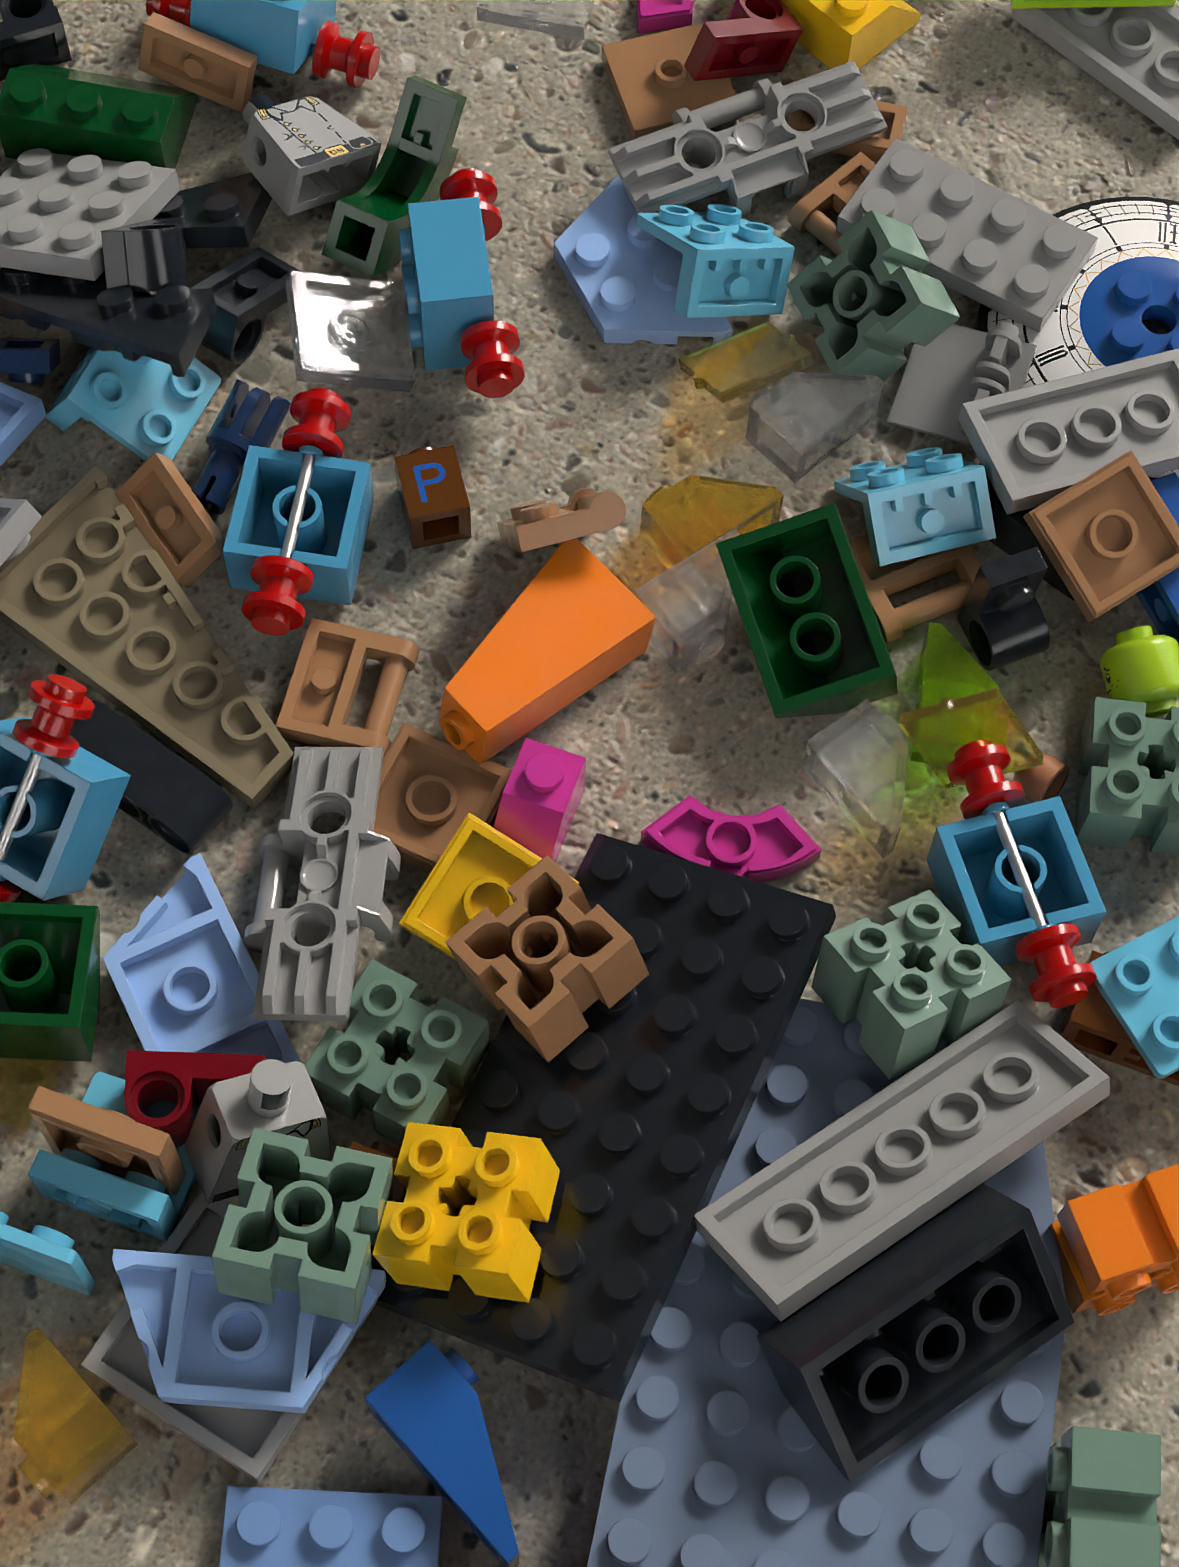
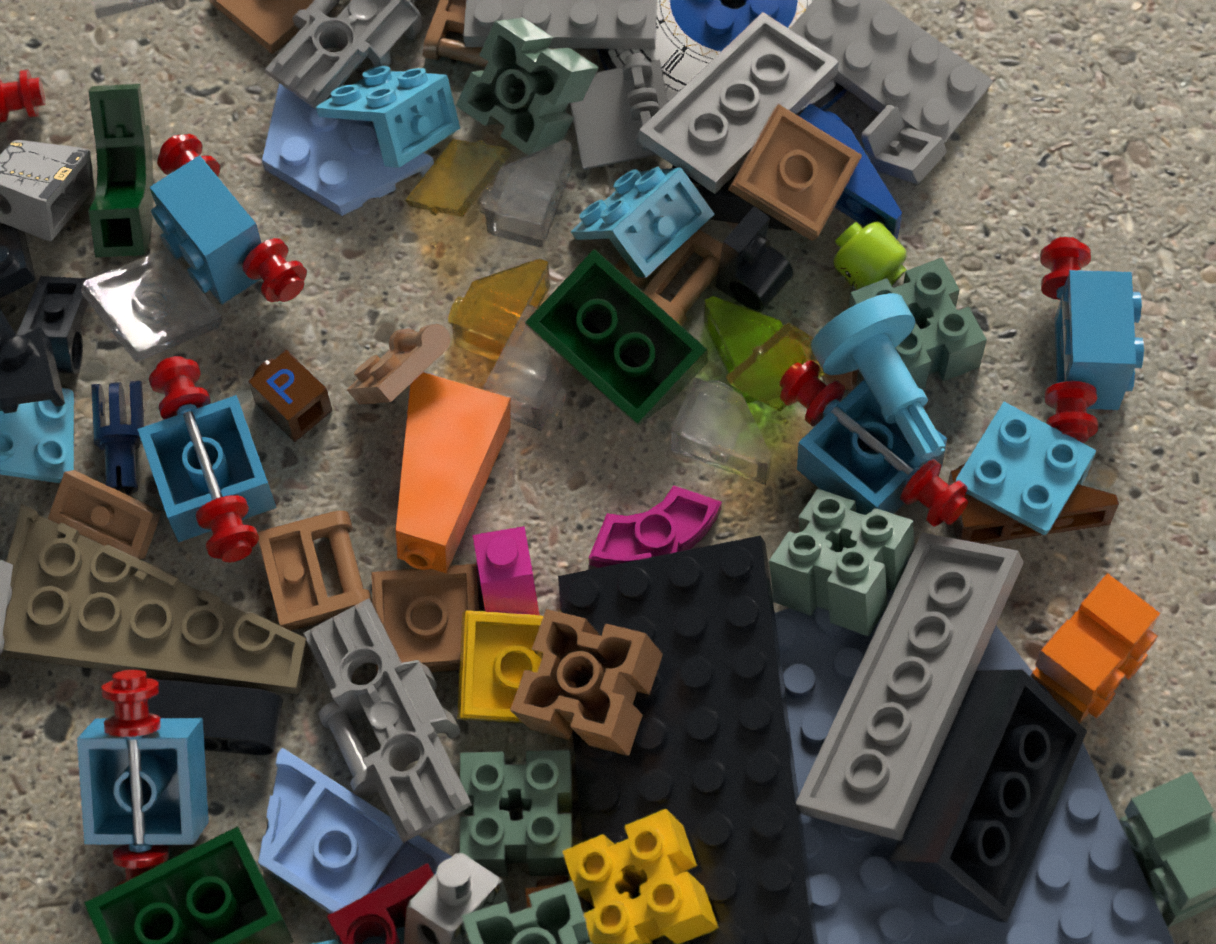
camera: 25 degrees left, 0 degrees up
(1074, 753) = (866, 341): none -> medium azure piece

